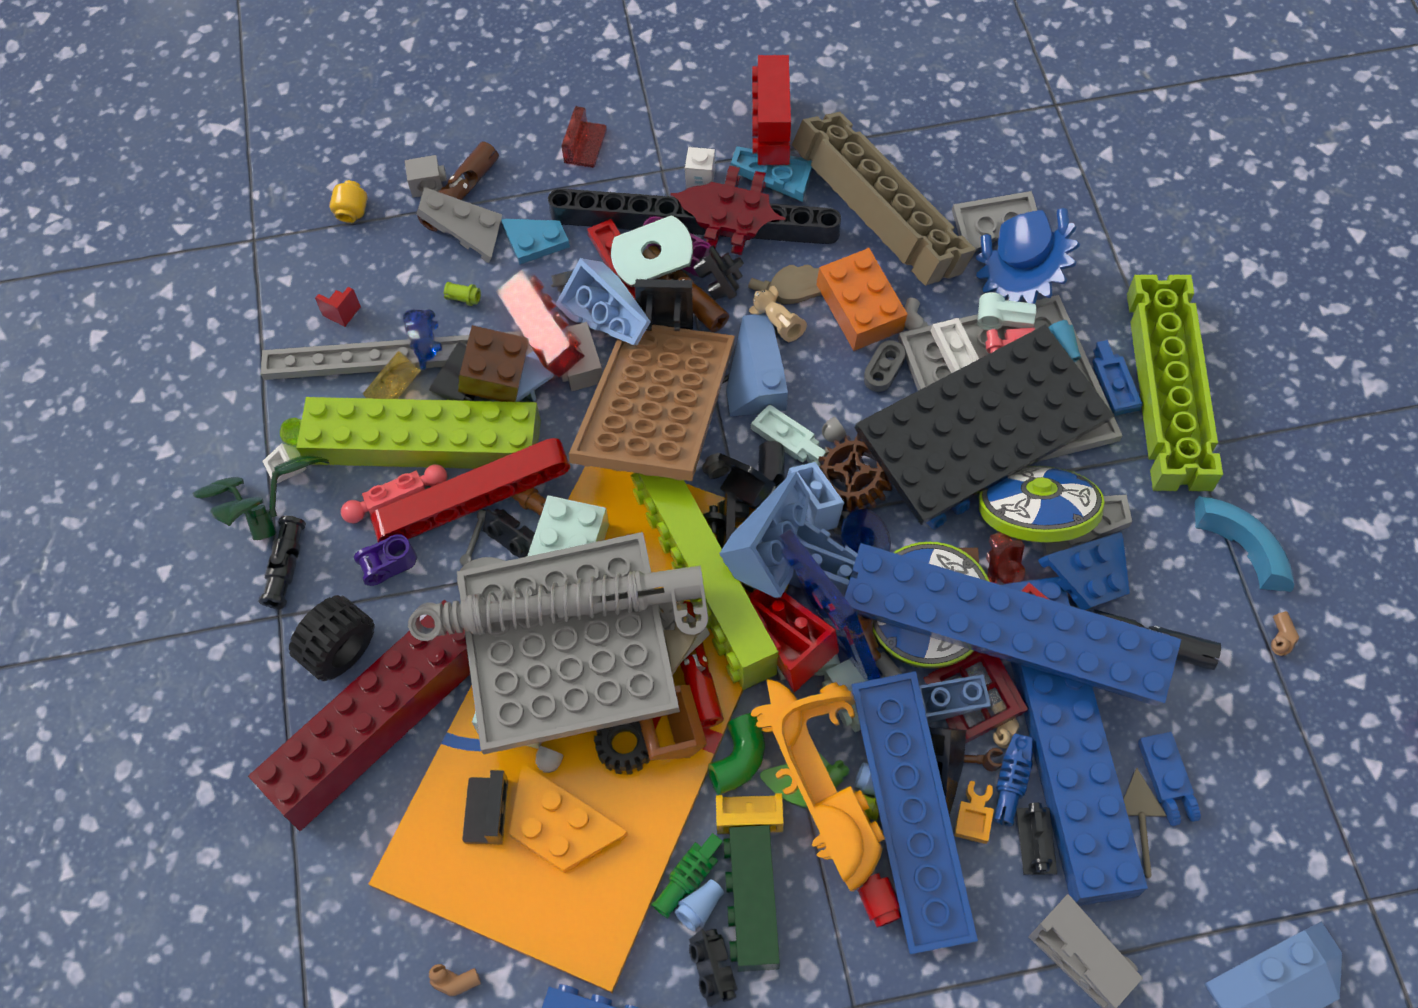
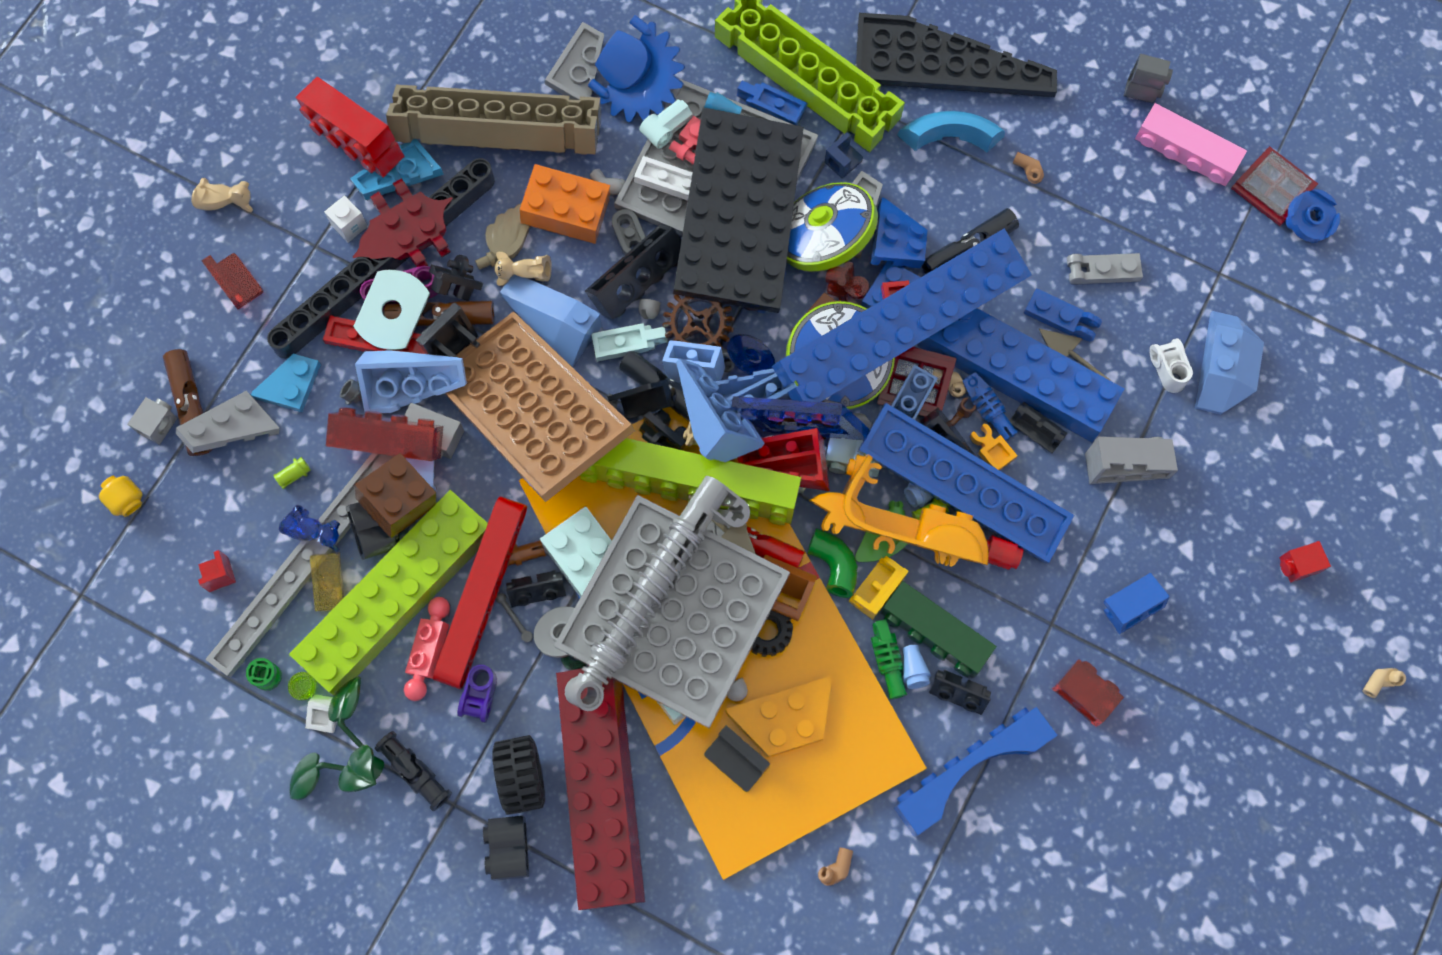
camera: 55 degrees left, 10 degrees up
(268, 683) = (506, 848): none -> black brick
(281, 397) = (269, 675): none -> green wheel
(638, 79) = (216, 196): none -> tan animal
(842, 383) = (623, 273): none -> black brick
(1125, 470) = (842, 156): none -> dark blue panel
(1227, 917) = (1171, 360): none -> white piece
(1257, 781) = (1105, 268): none -> light grey plate
(1291, 463) = (911, 54): none -> black wing

